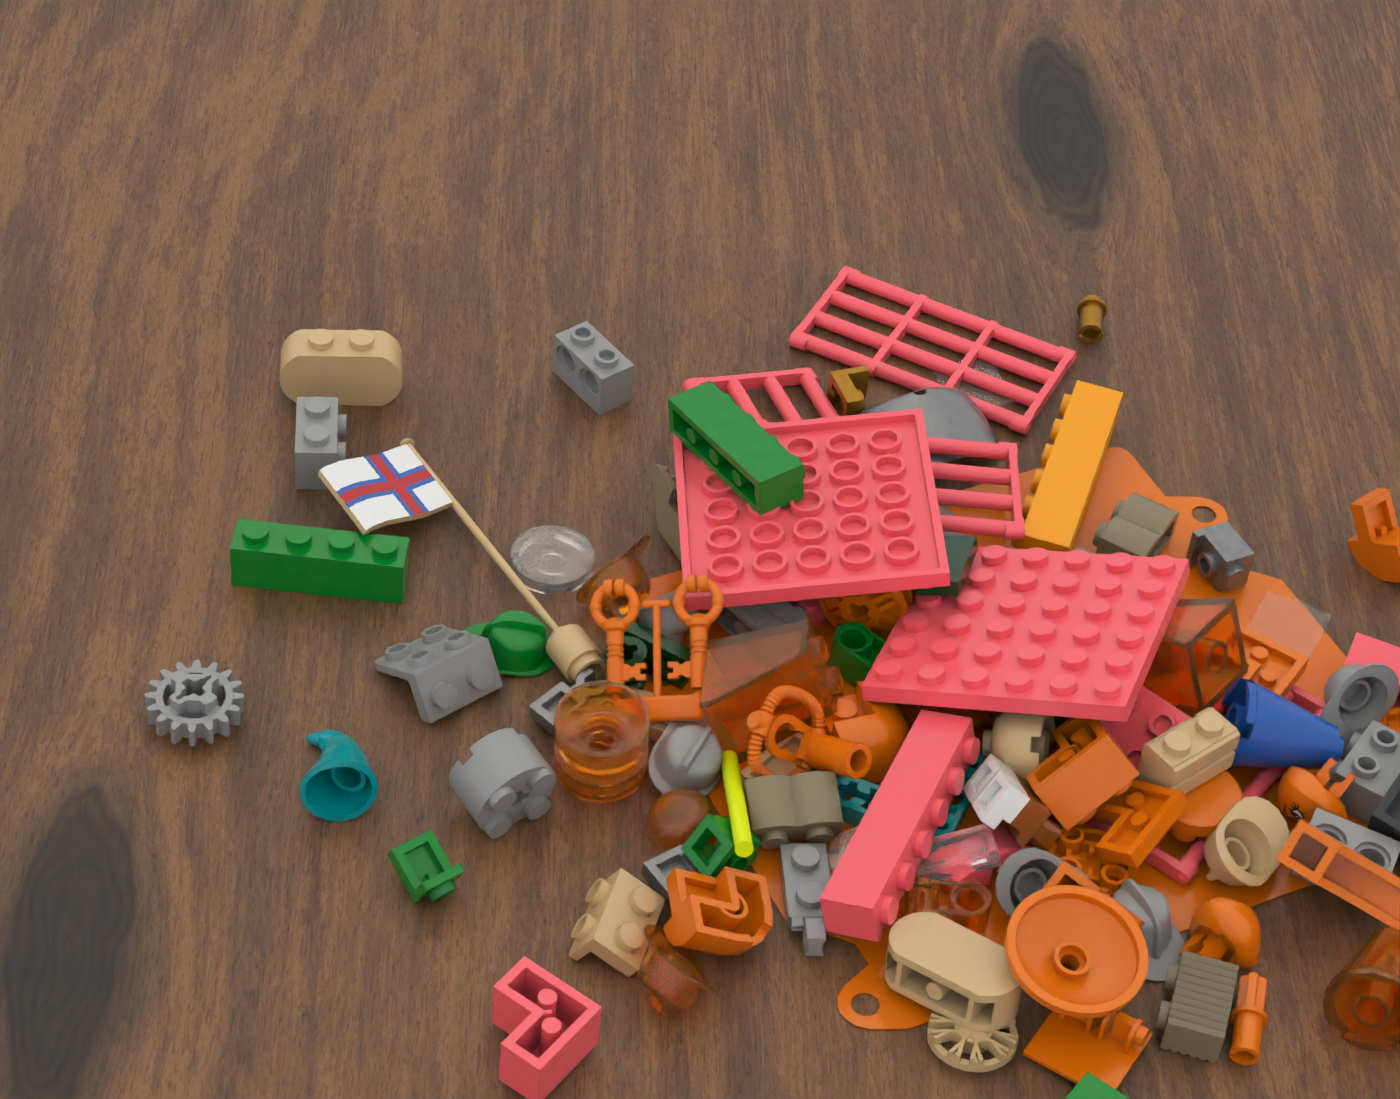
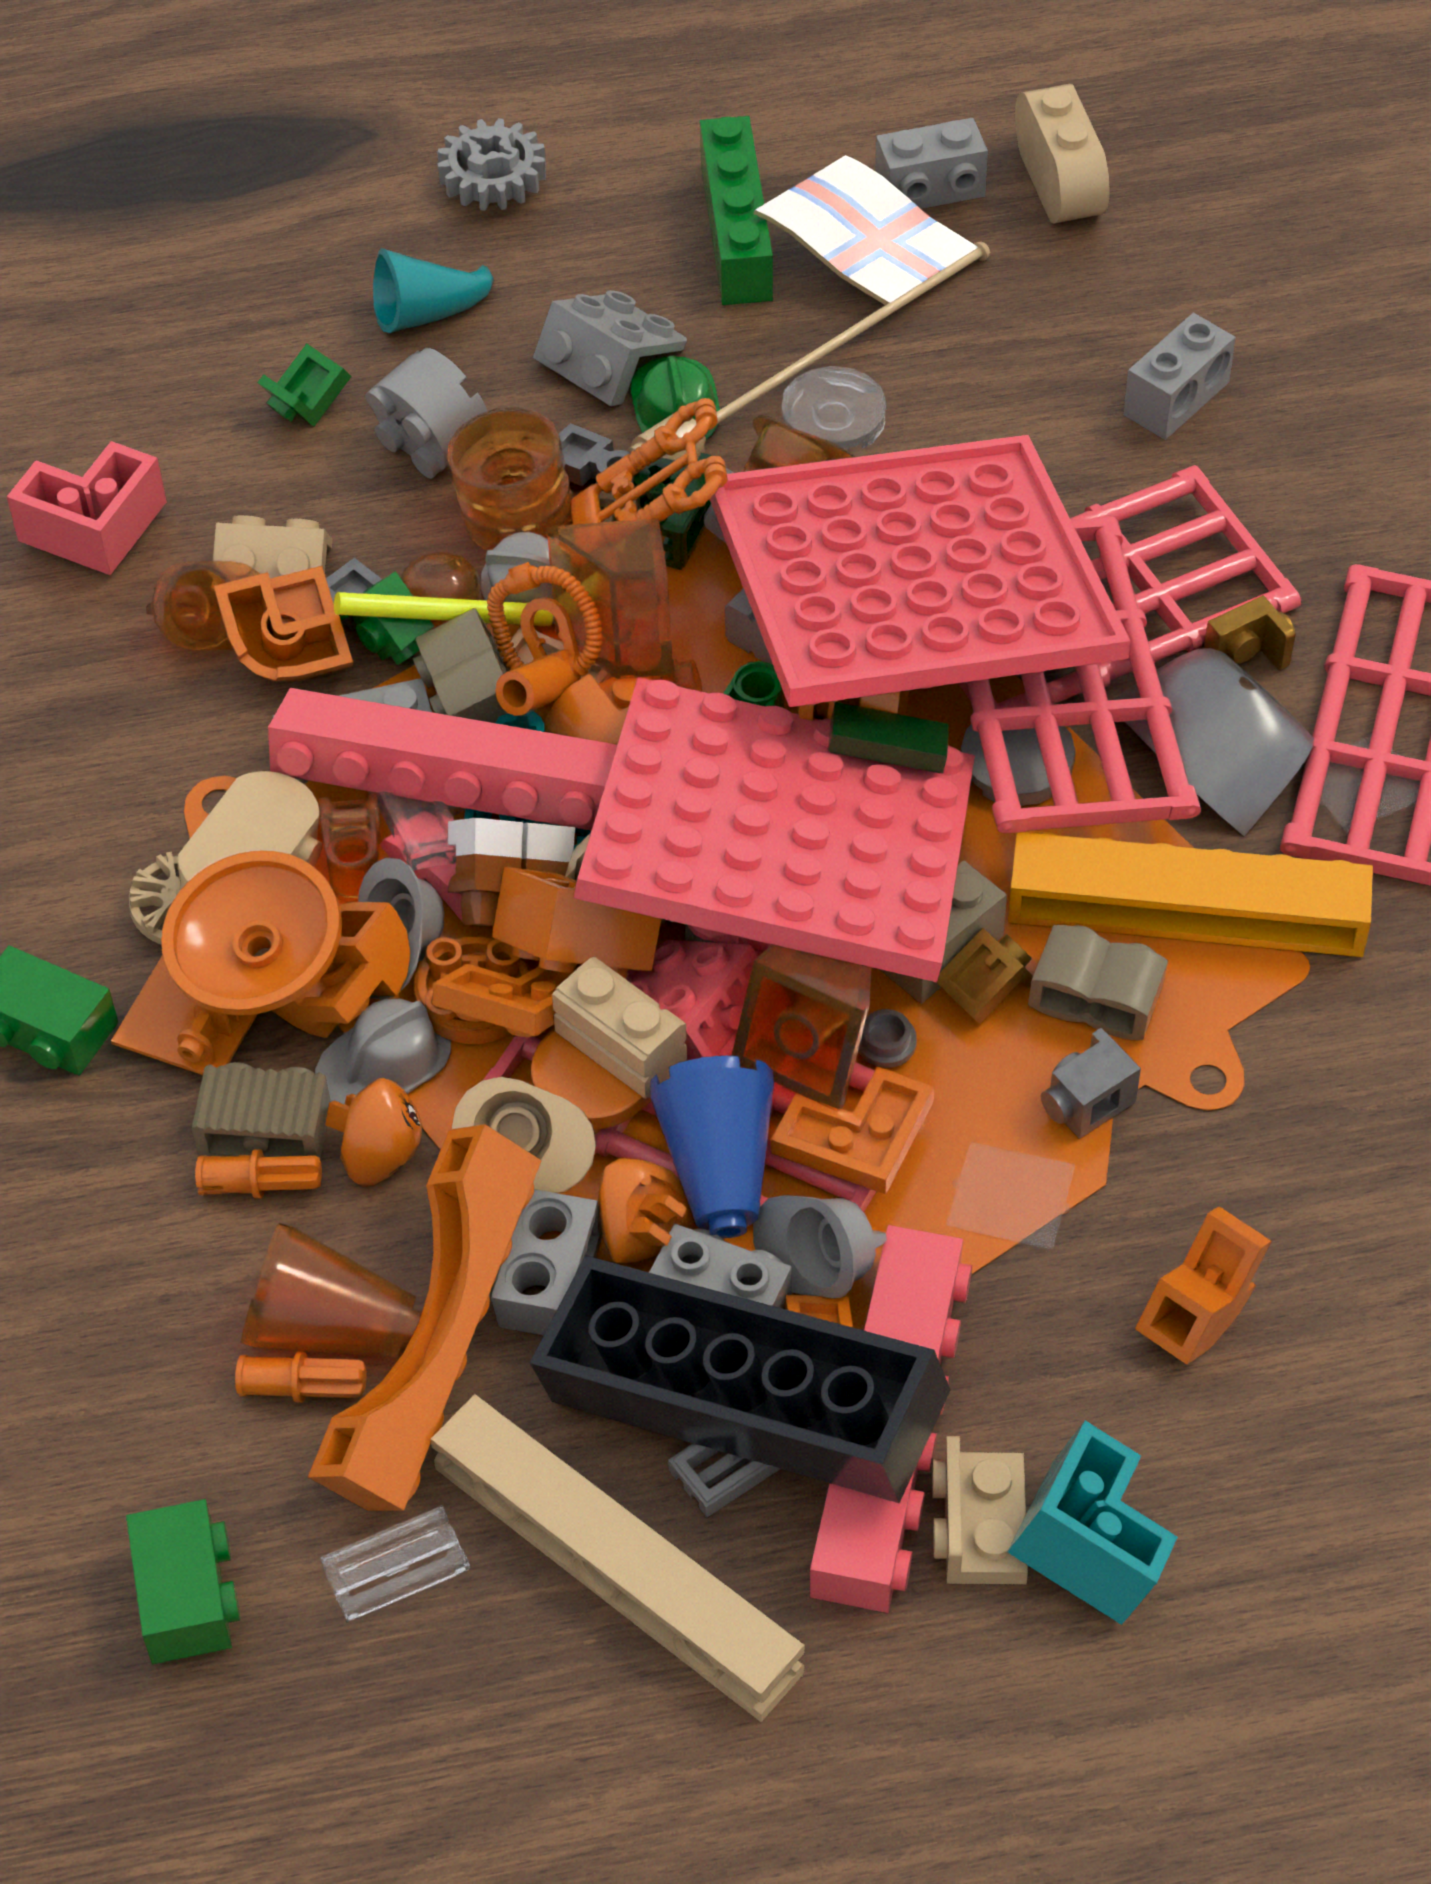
camera: 85 degrees right, 10 degrees up
(736, 448) = (981, 472): green brick -> none

